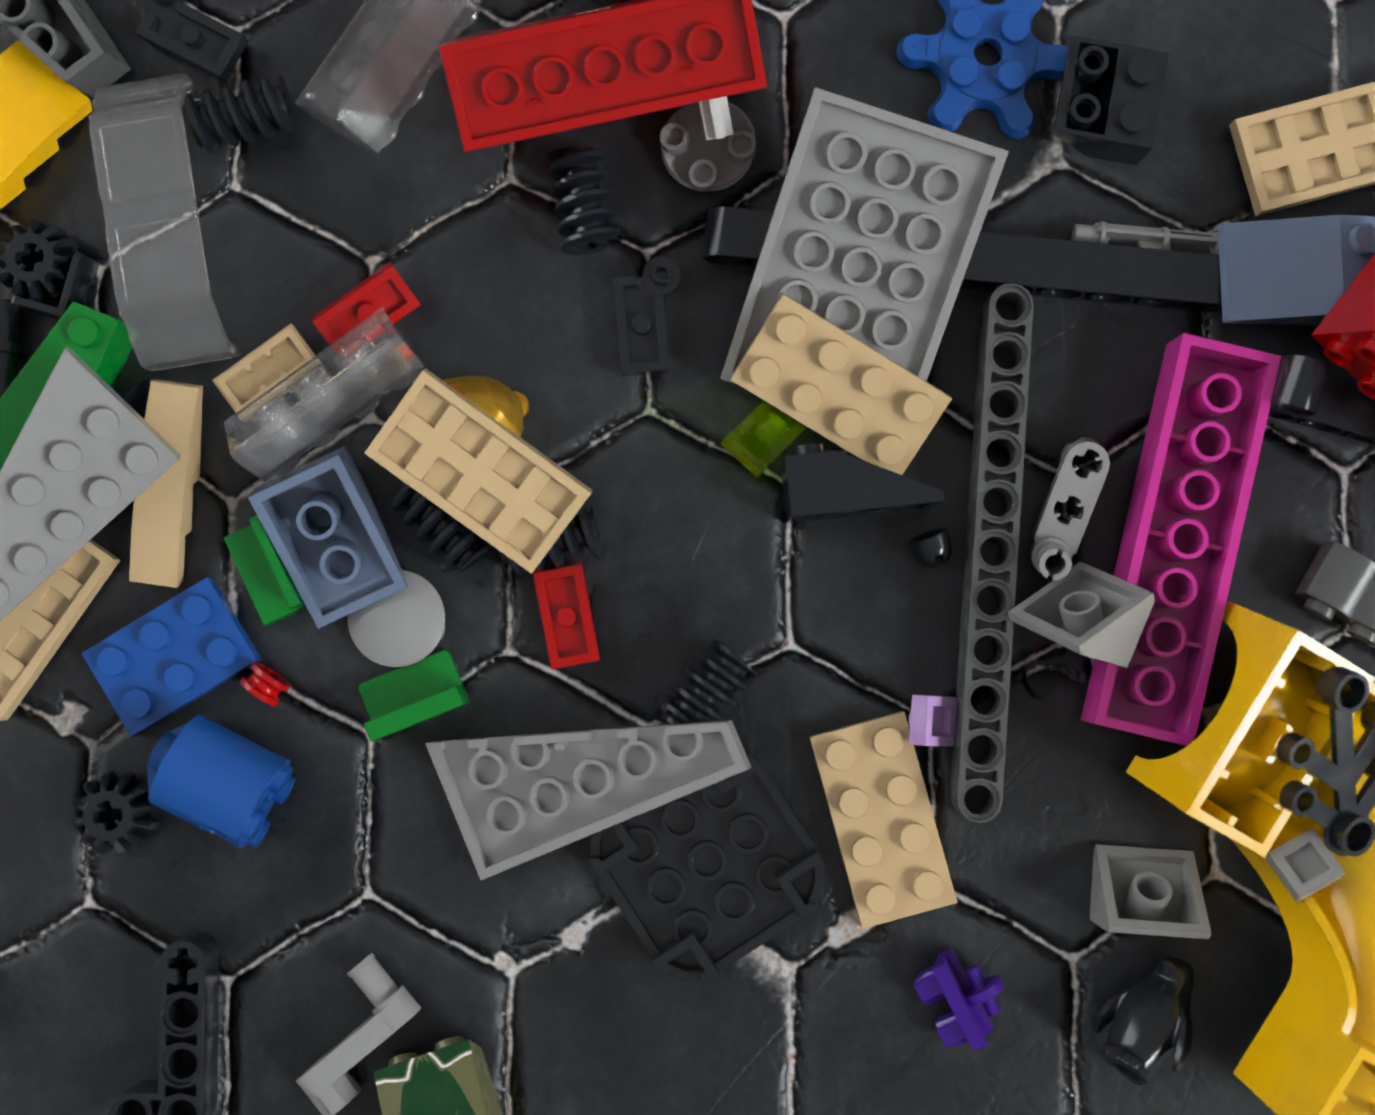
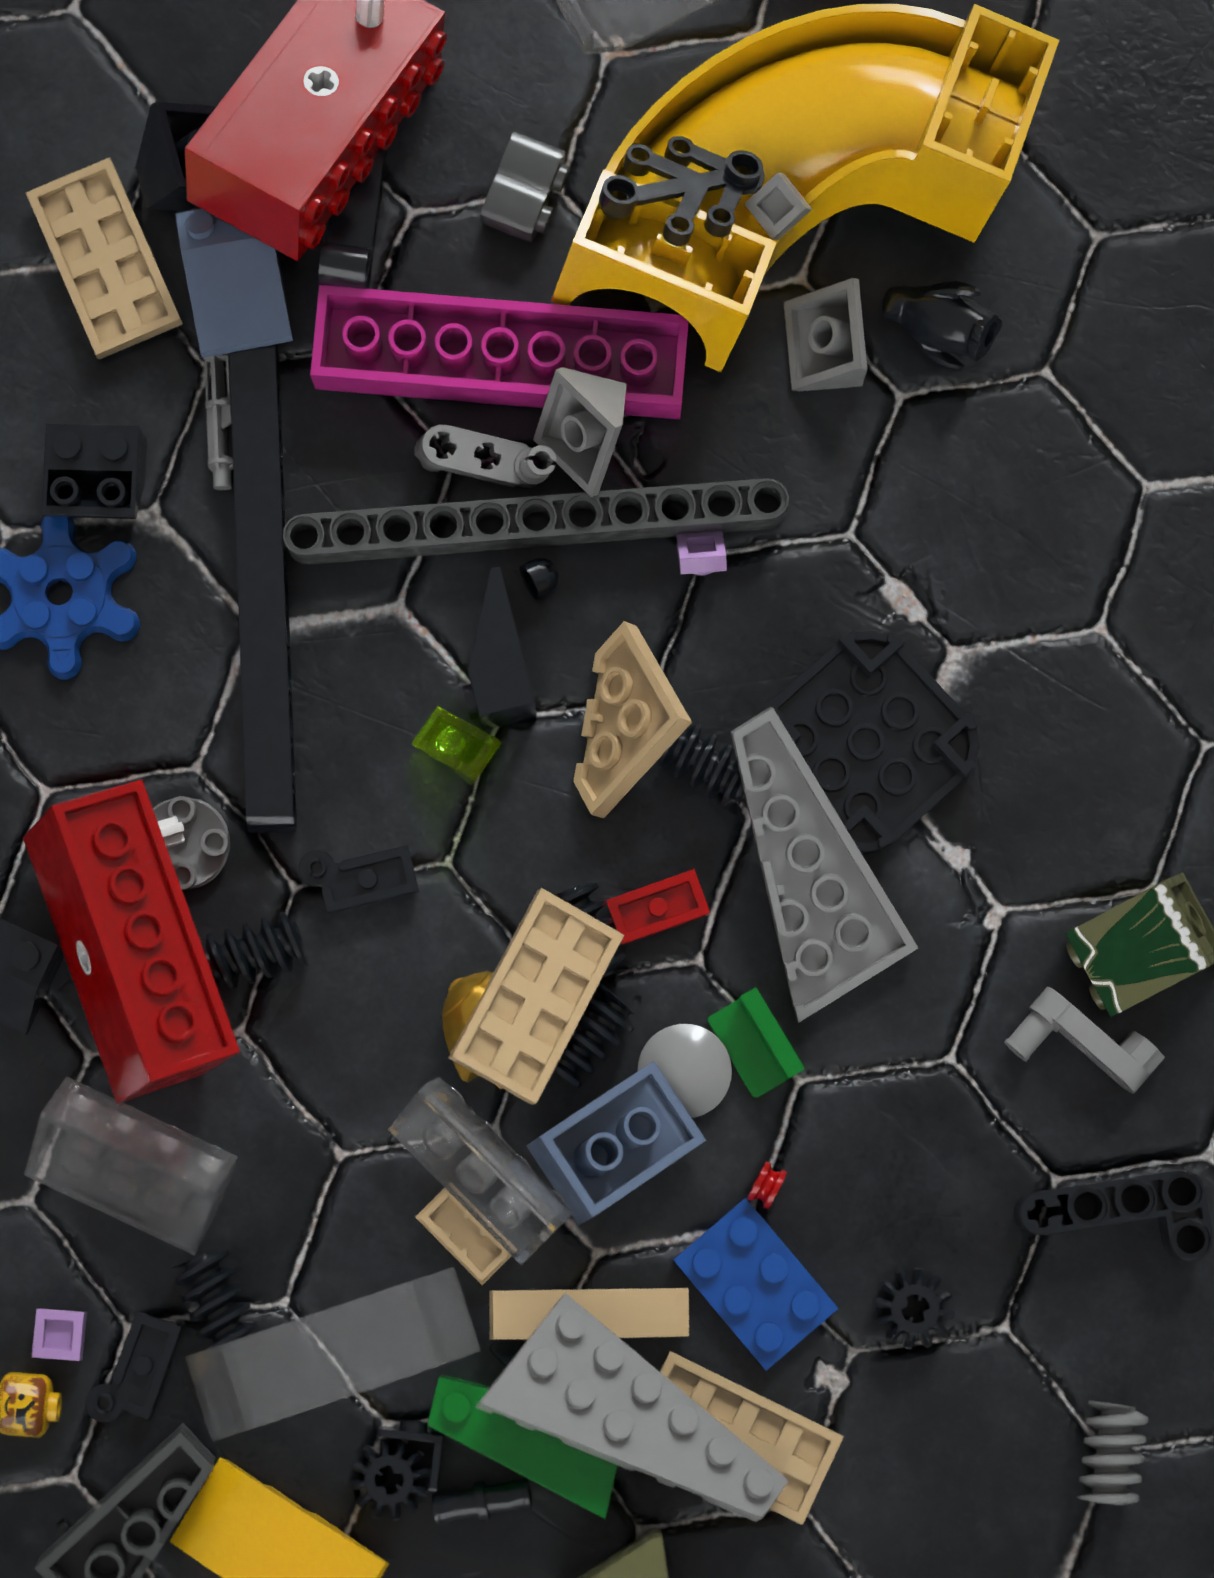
camera: 105 degrees left, 5 degrees down
(218, 780) = (864, 1208): blue cylinder -> none
(264, 573) = (658, 1203): green panel -> none
(380, 290) = (371, 1135): red plate -> none
(762, 615) = (627, 721): none -> tan plate
(840, 386) = (403, 681): tan plate -> none
(873, 229) = (286, 676): light grey plate -> none
(883, 819) = (800, 586): tan plate -> none
(968, 996) = (970, 481): dark purple hips -> none

